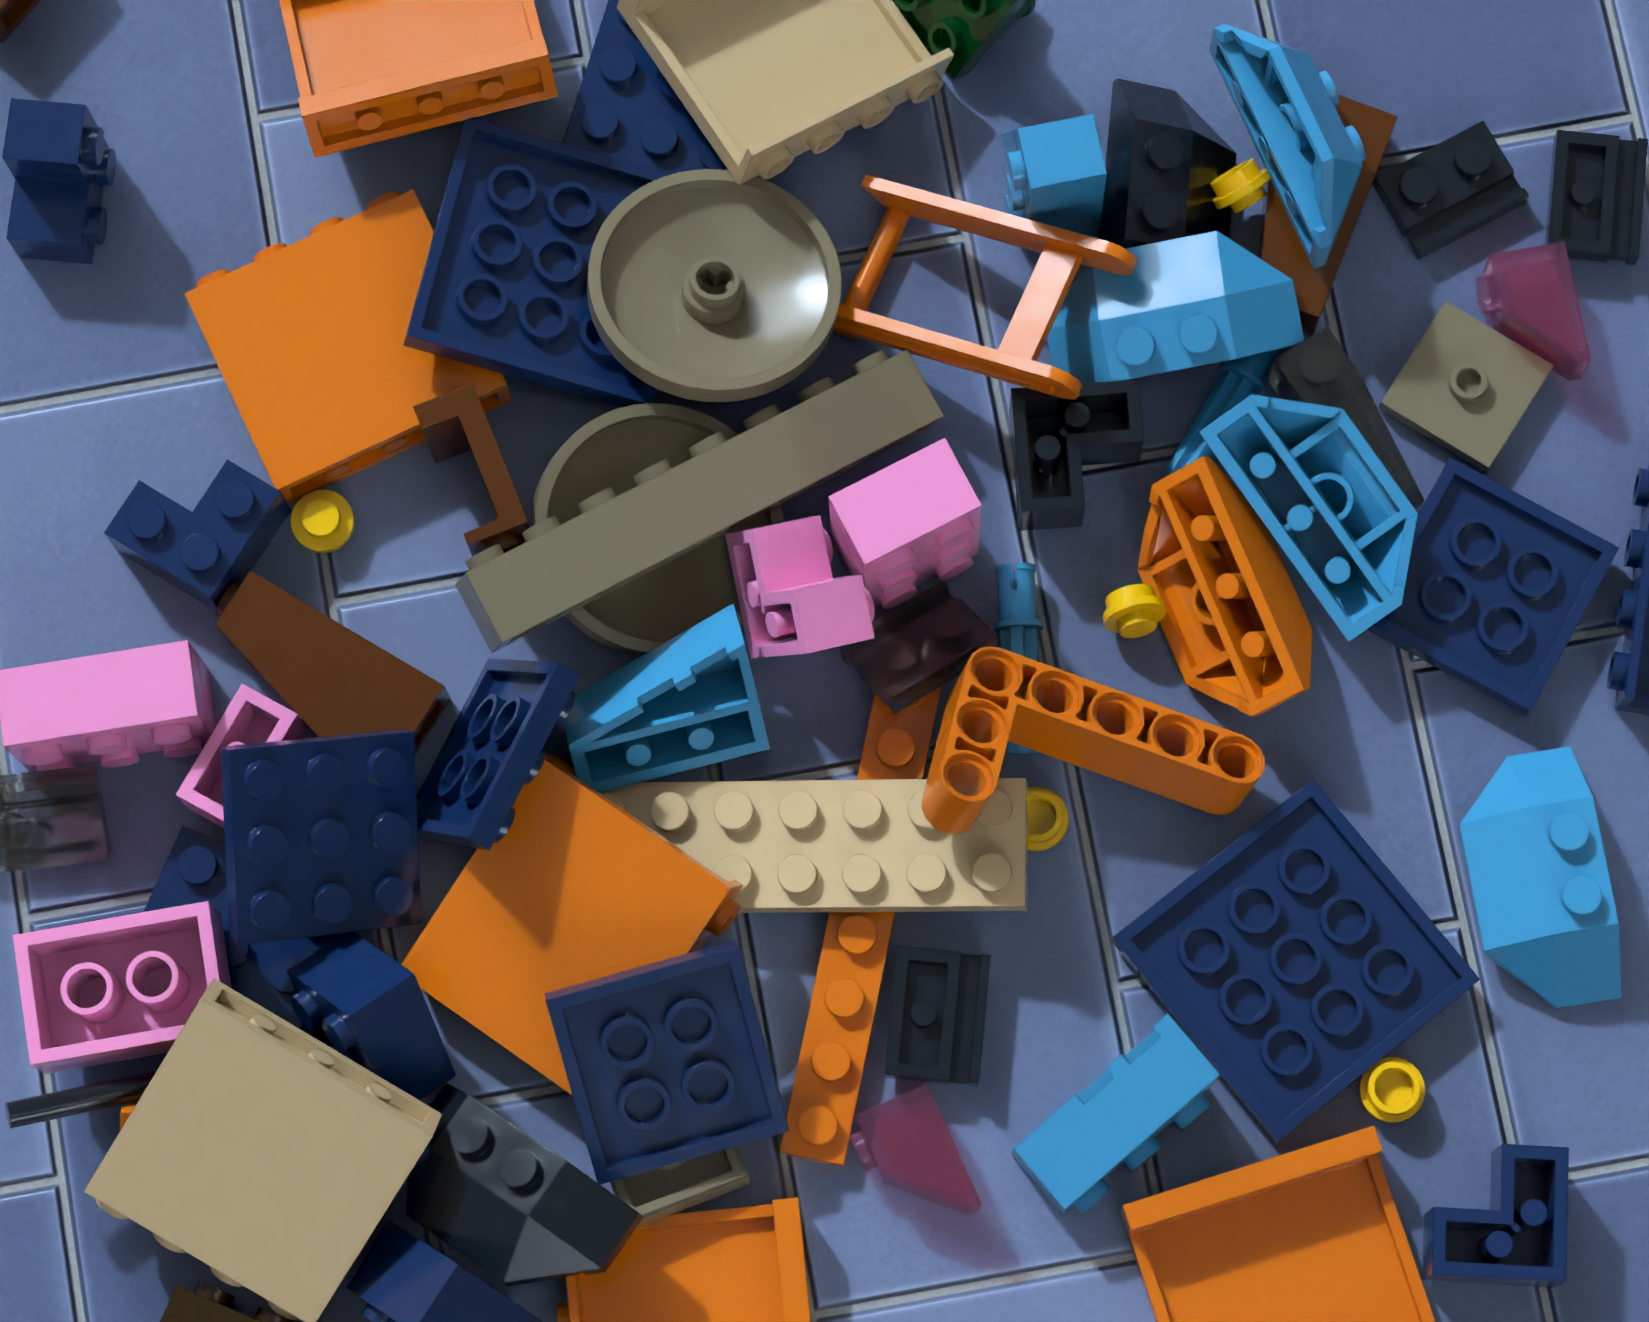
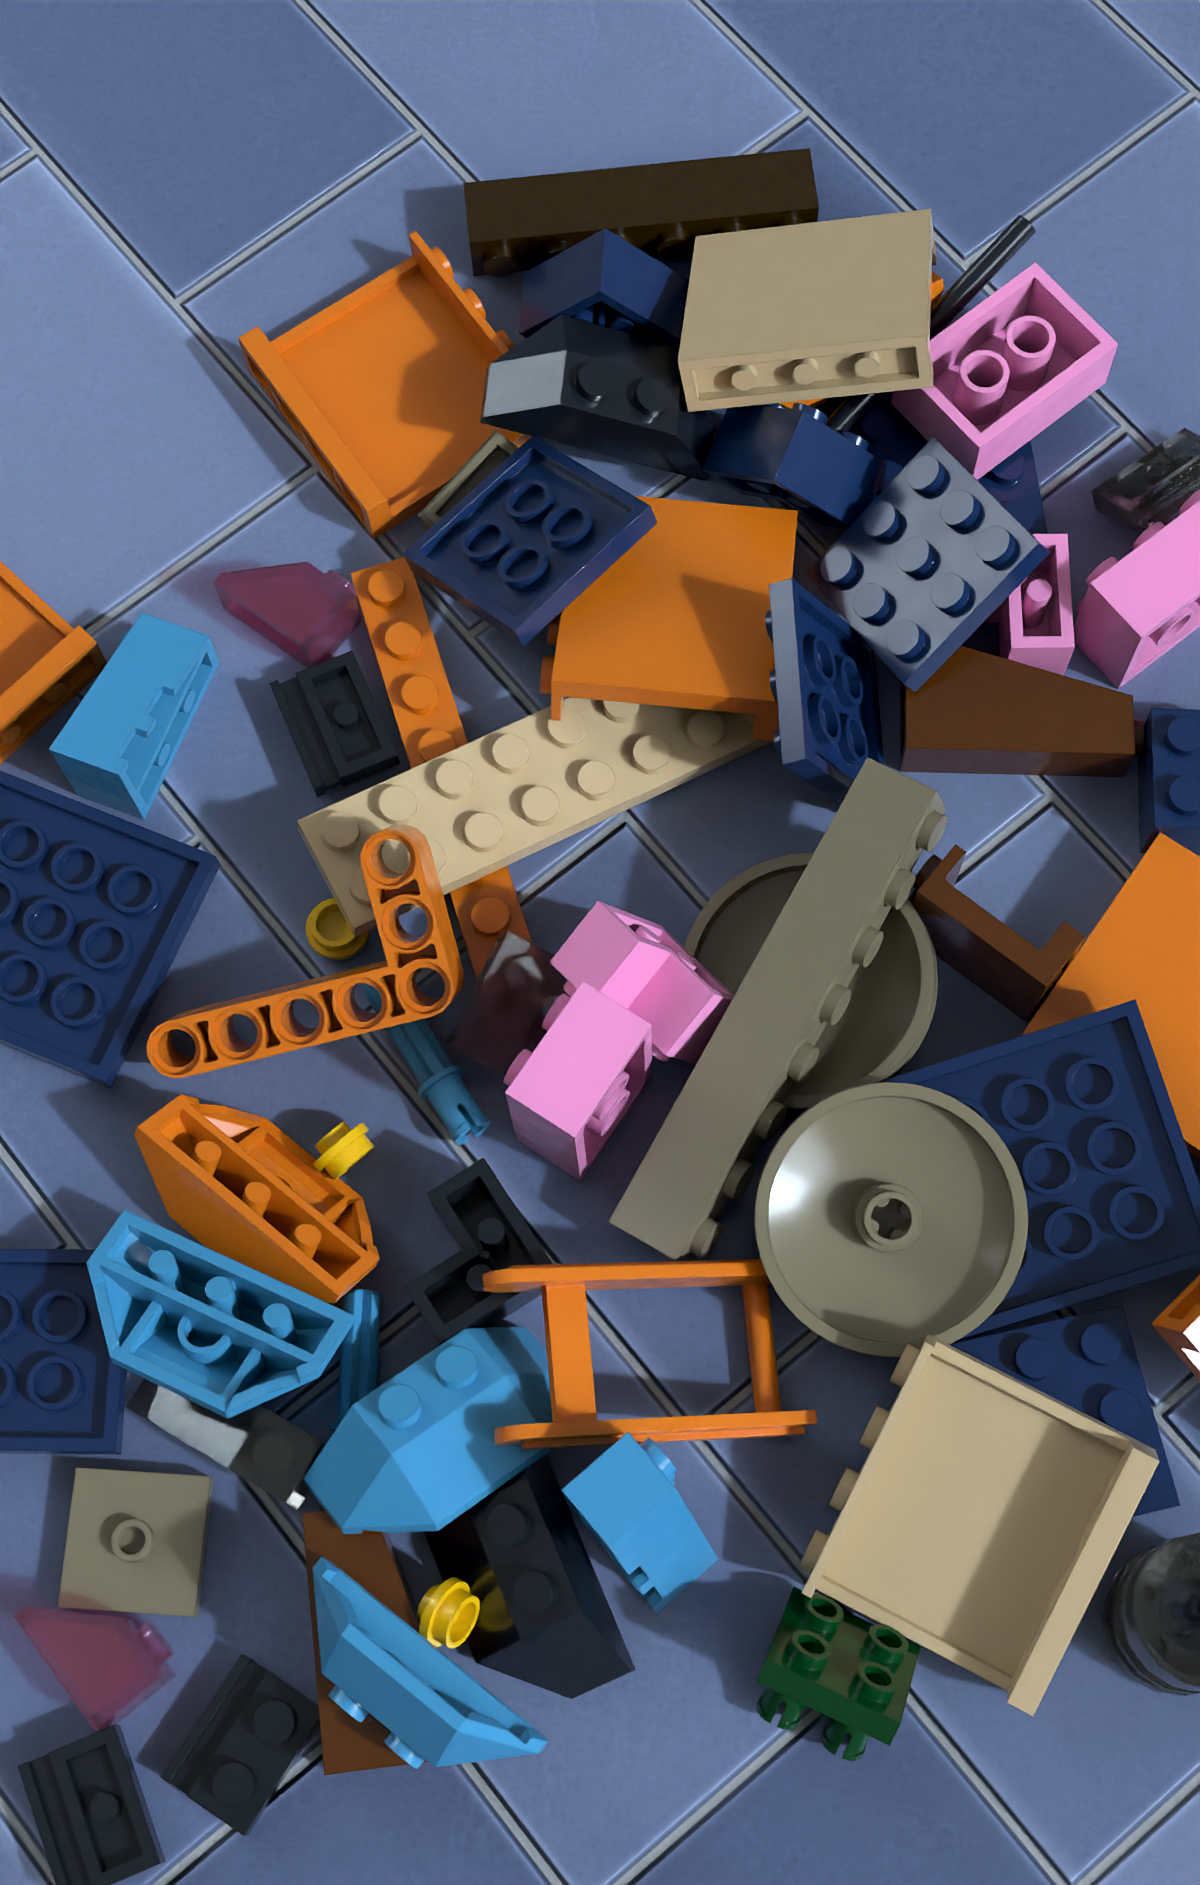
camera: 150 degrees right, 5 degrees down
(322, 521) = (1105, 848): yellow plate -> none
(669, 709) = (701, 830): dark azure wedge -> none

